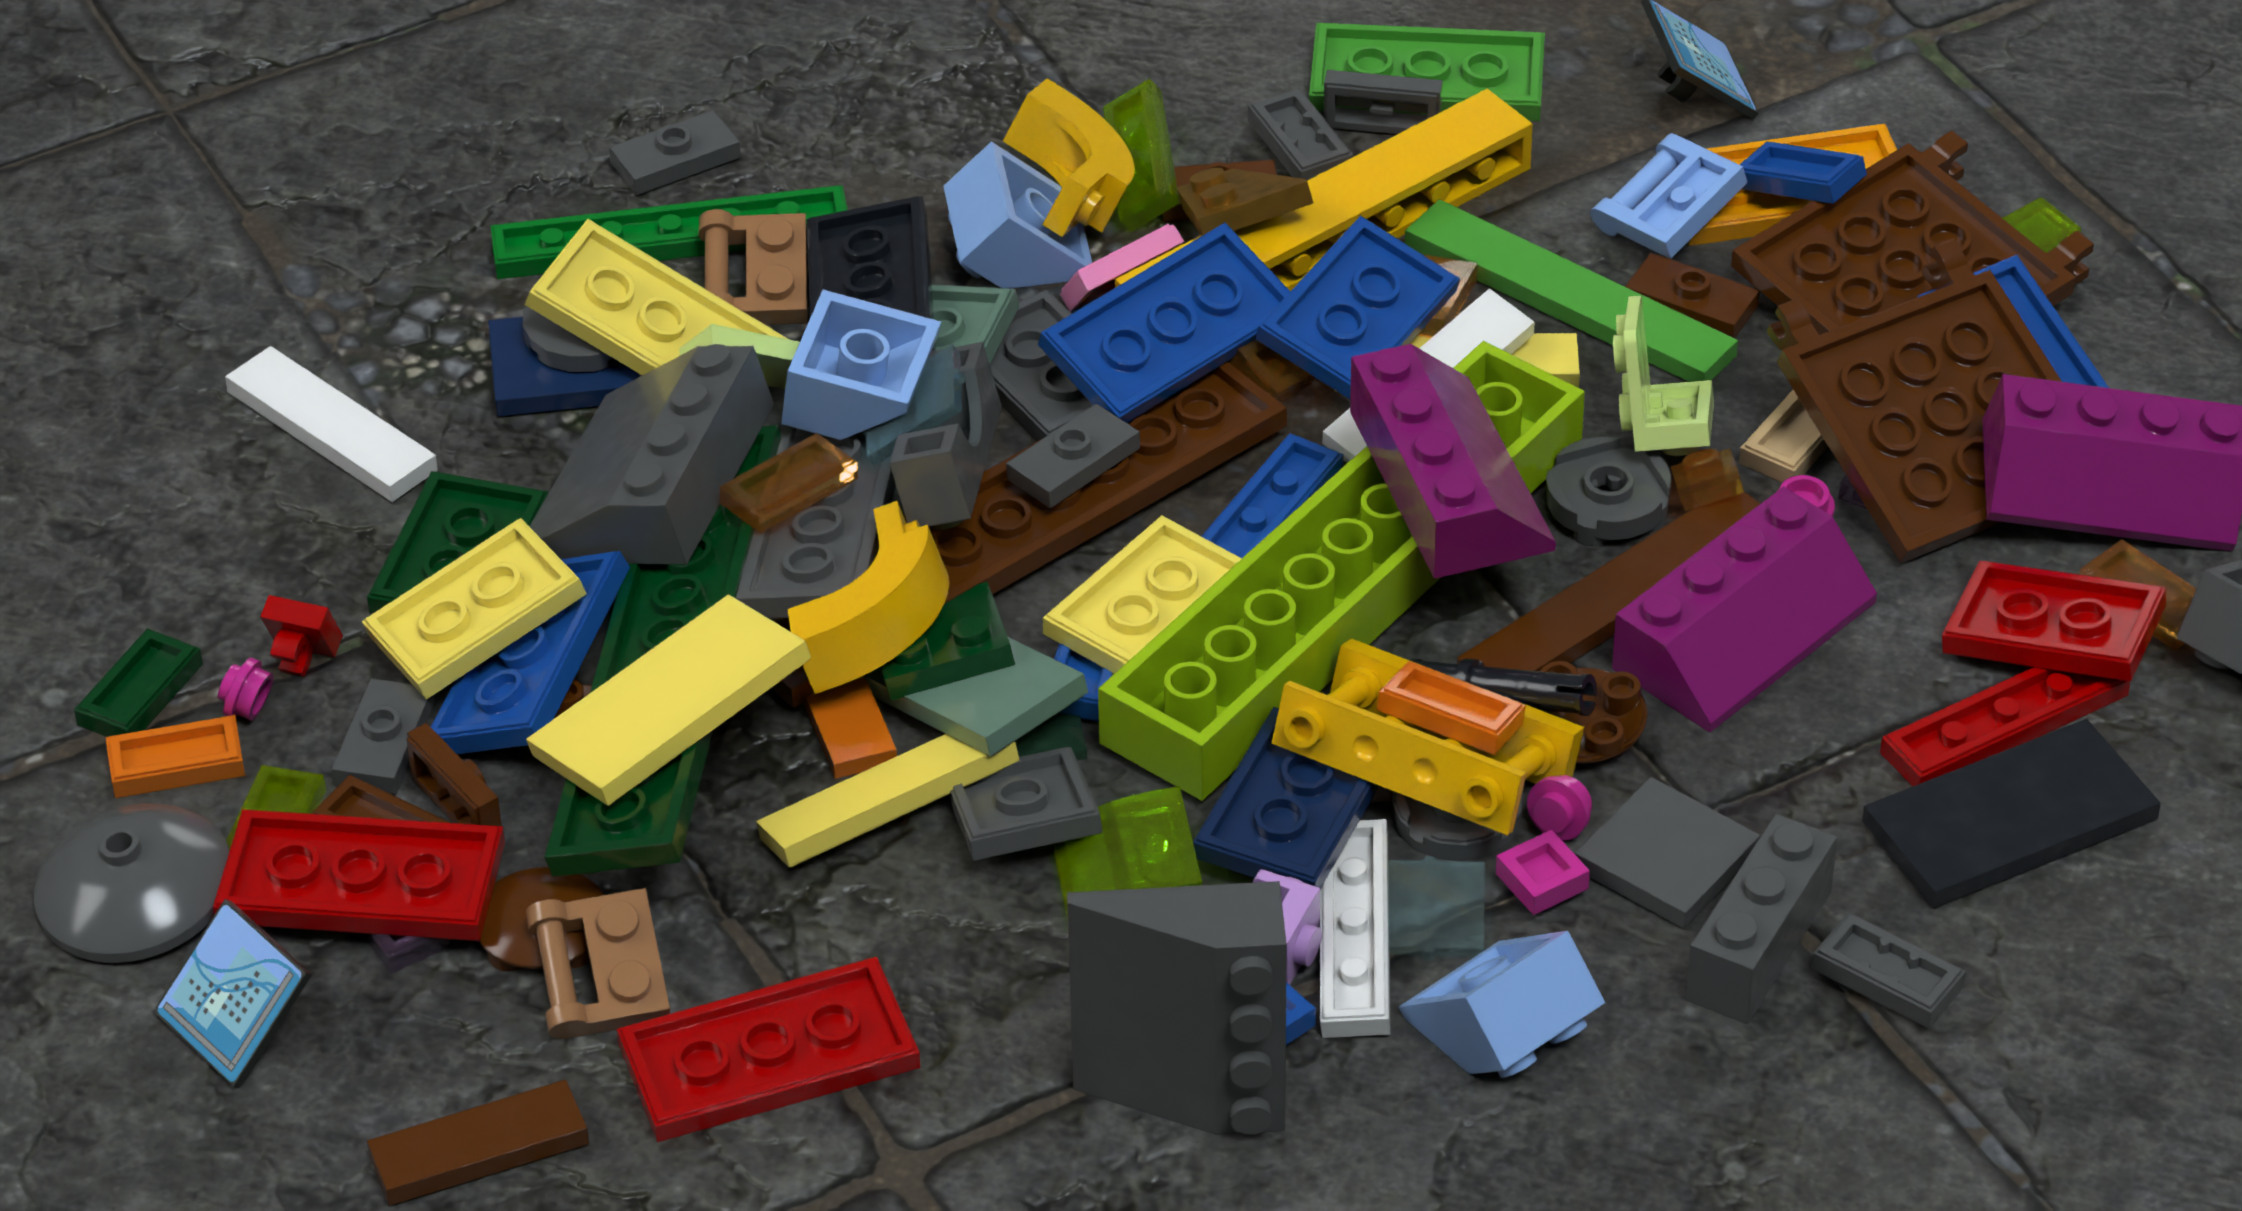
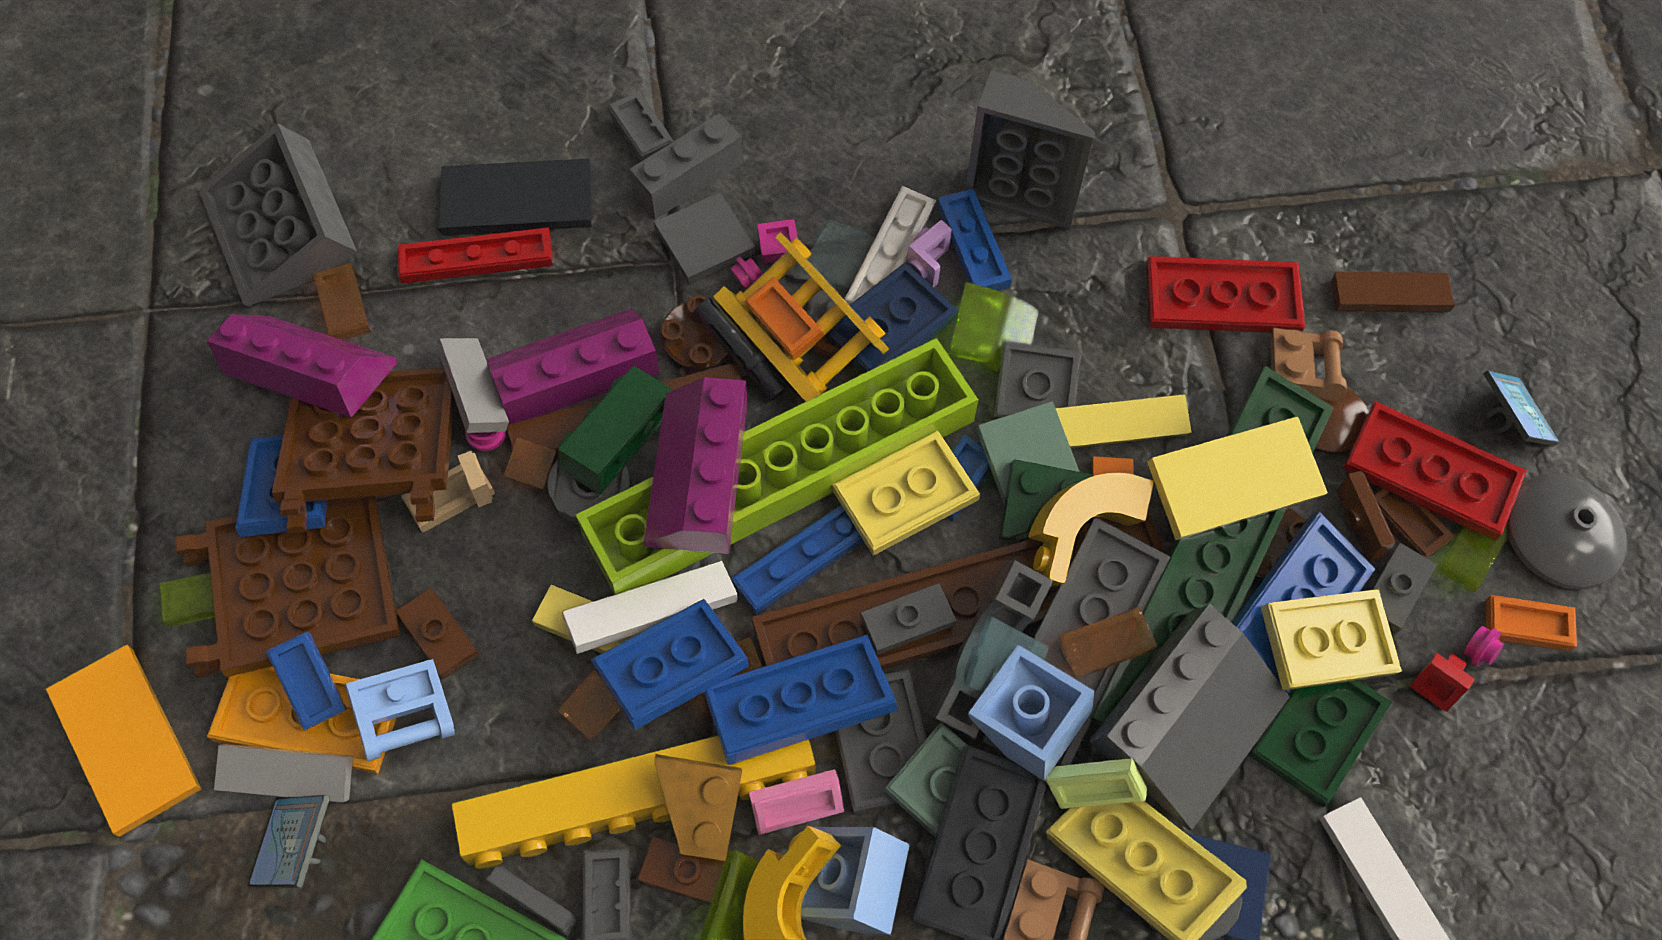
camera: 160 degrees left, 20 degrees up
(138, 685) = (1549, 691): dark green tile -> none
(1507, 1003) = (842, 173): light blue slope -> none
(1569, 291) = (511, 669): bright green tile -> none
(1607, 517) = (614, 430): none -> dark green brick
(1661, 415) = (521, 515): yellowish green bracket -> none
(1759, 415) = (475, 478): none -> tan tile
(1765, 118) = (282, 772): none -> light grey tile
(1879, 536) = (472, 385): none -> light grey tile
(1985, 100) = (123, 740): none -> light orange tile
(2054, 620) = (410, 289): red tile -> none

